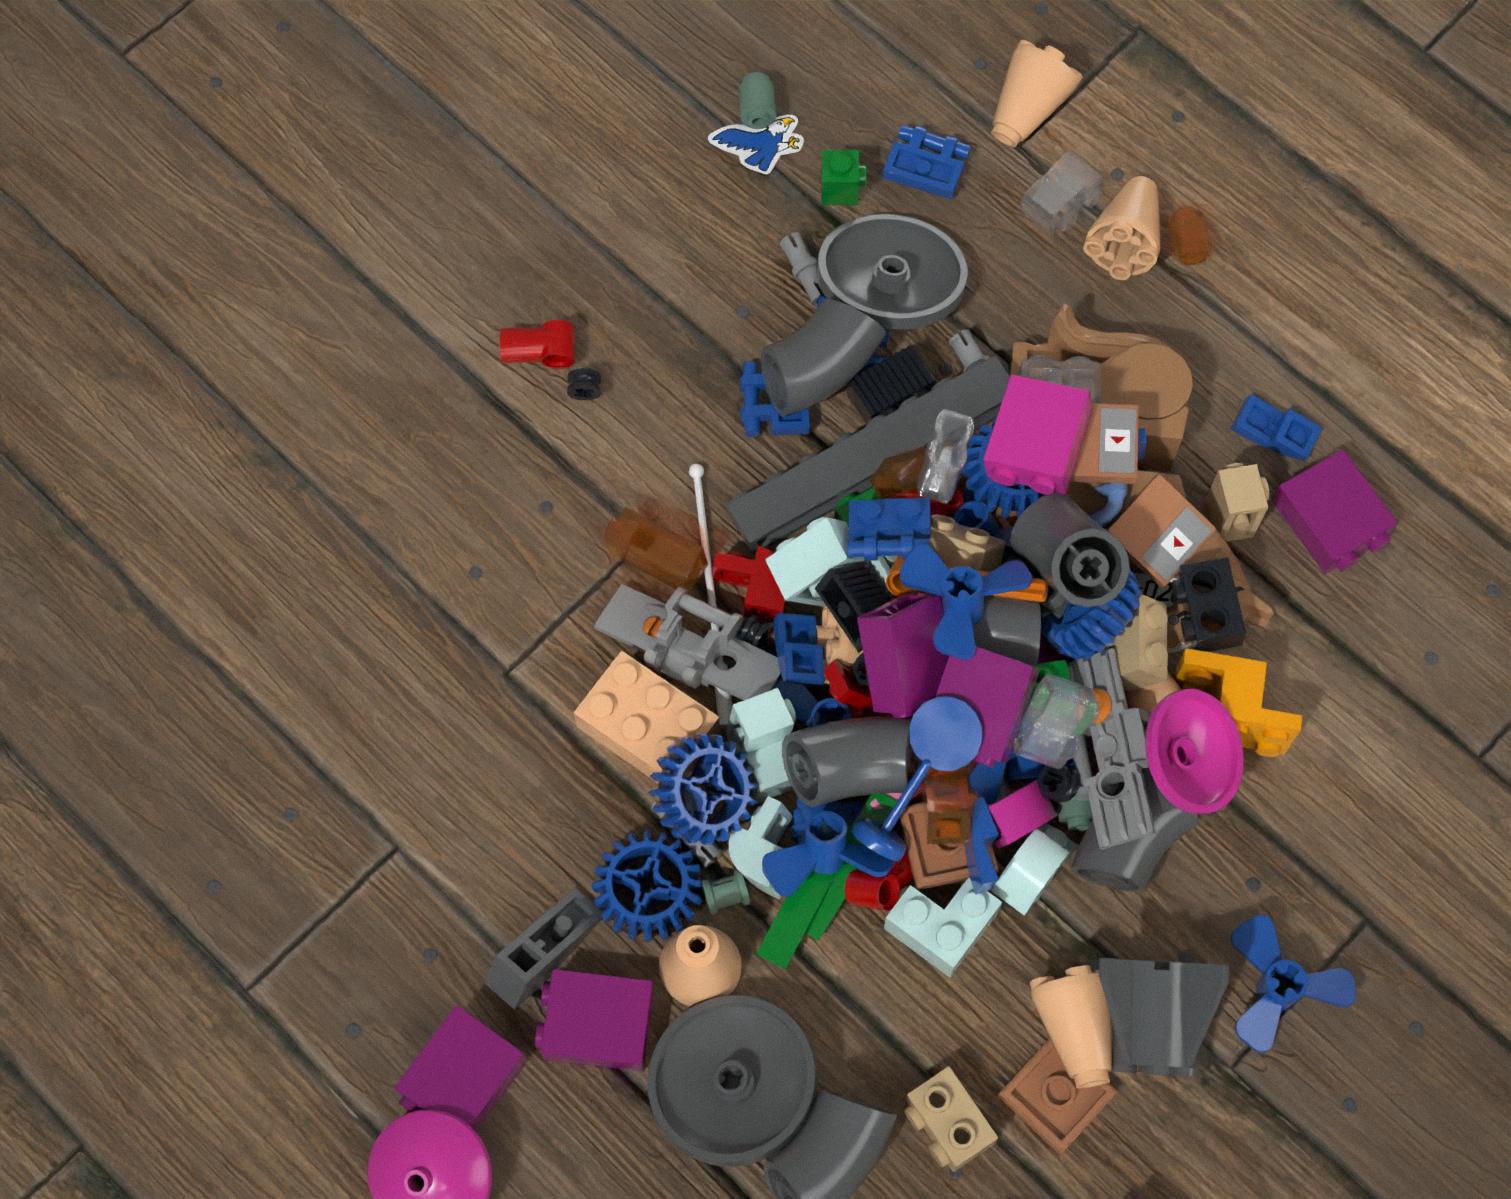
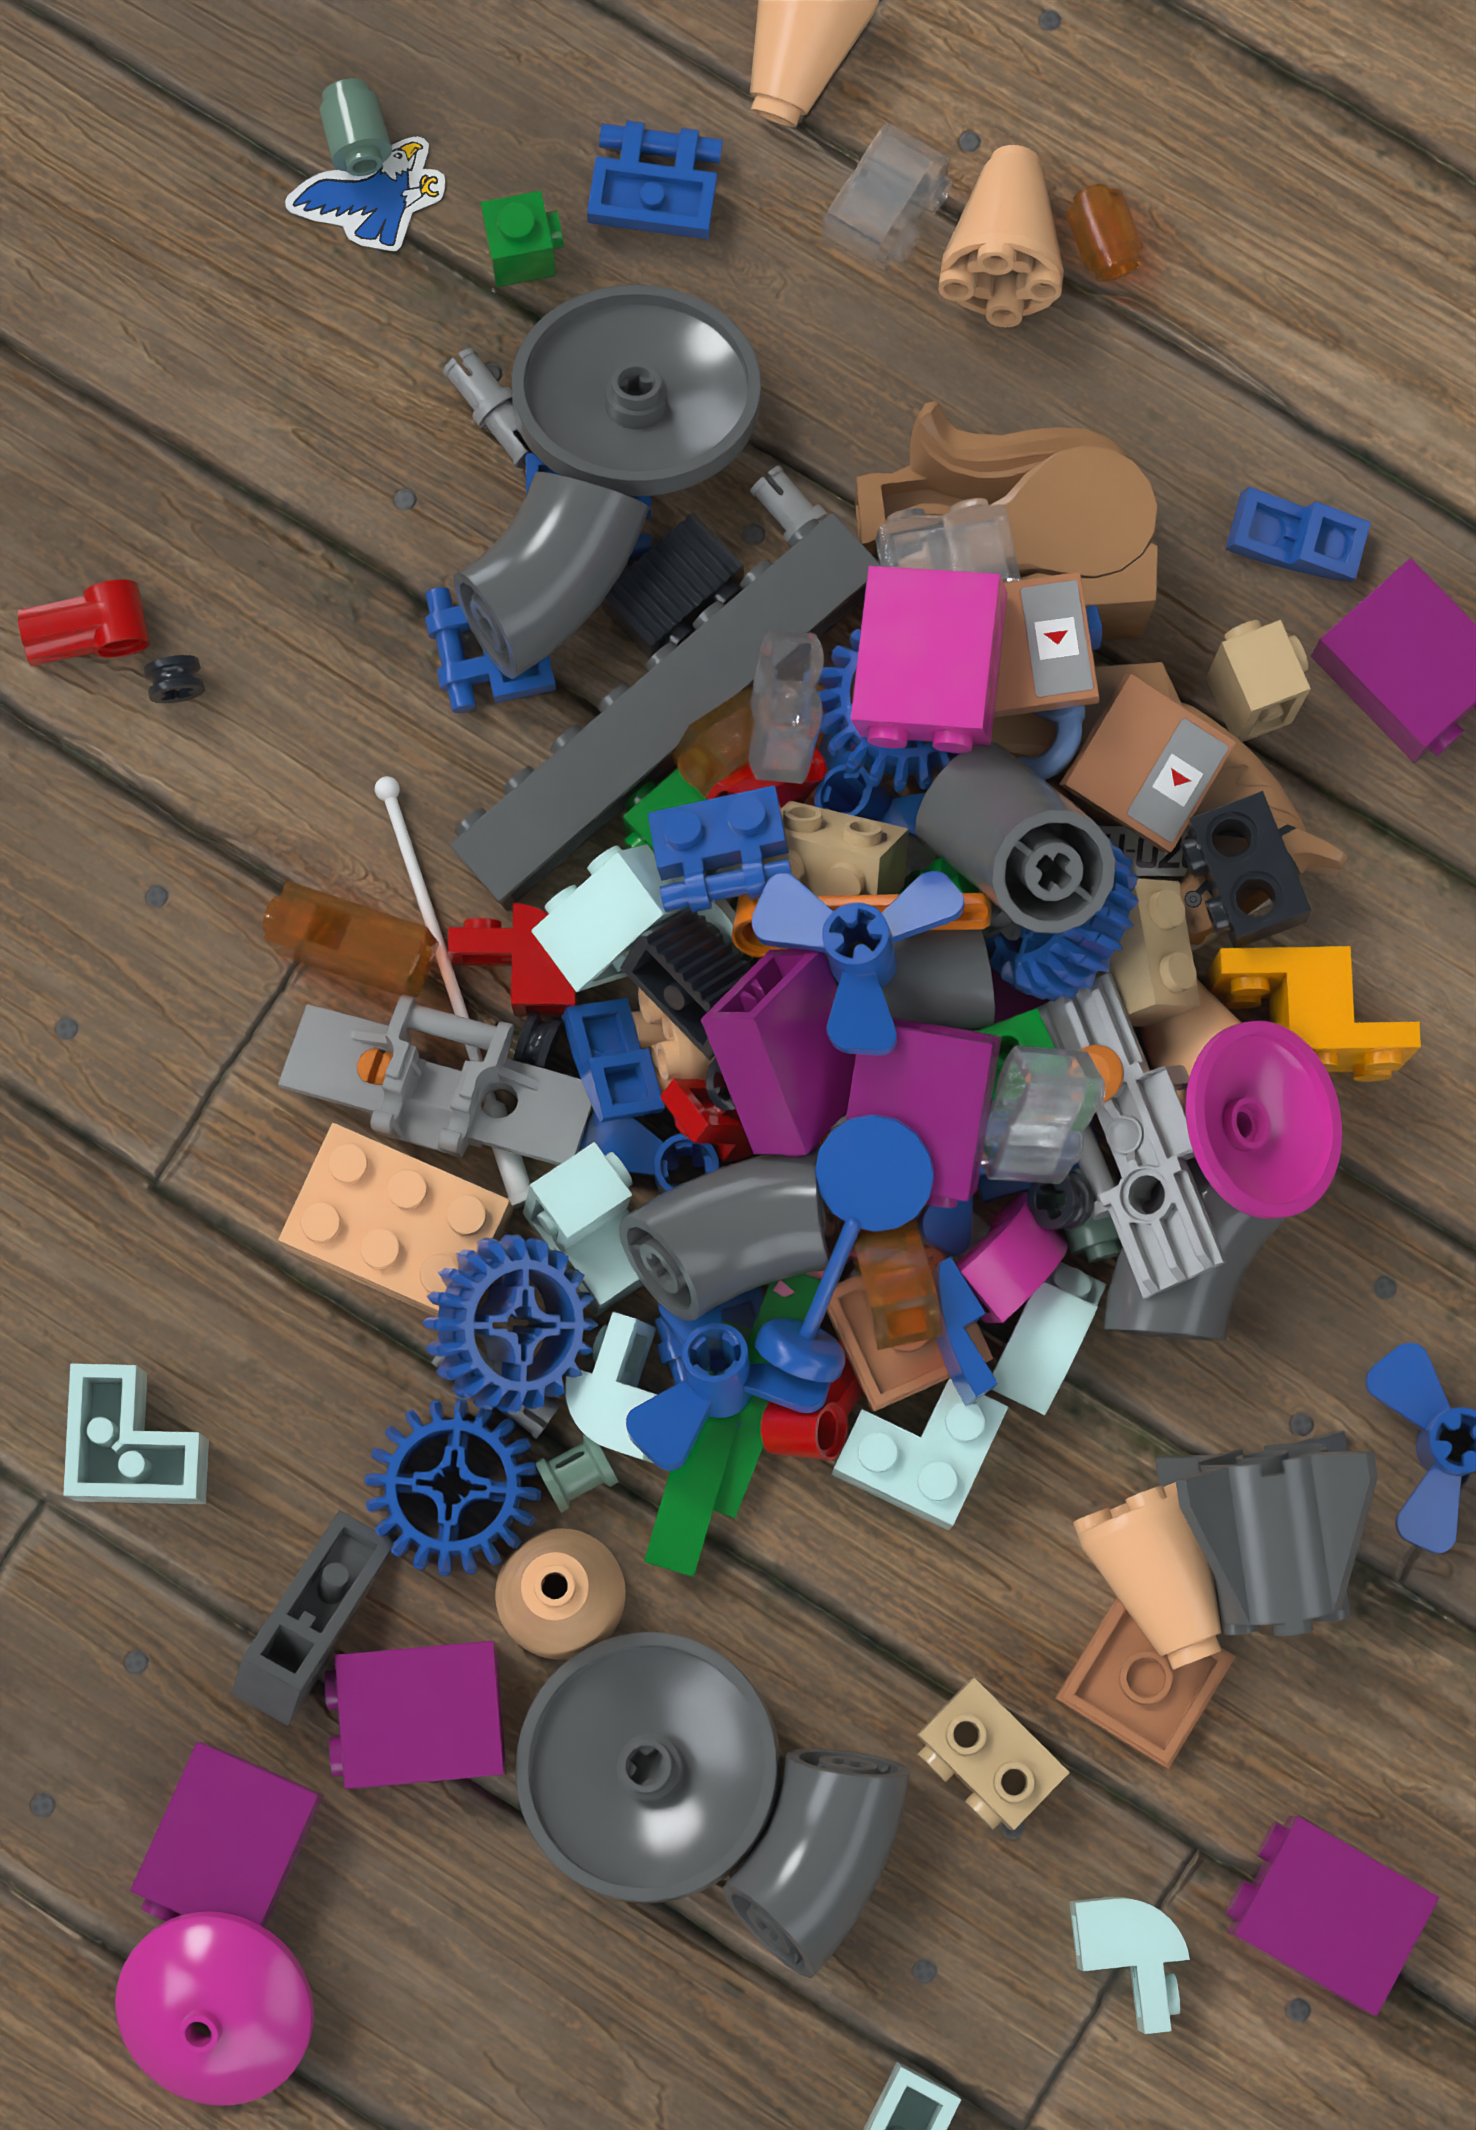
camera: 15 degrees left, 10 degrees up
(447, 824) = (113, 1454): none -> light aqua brick

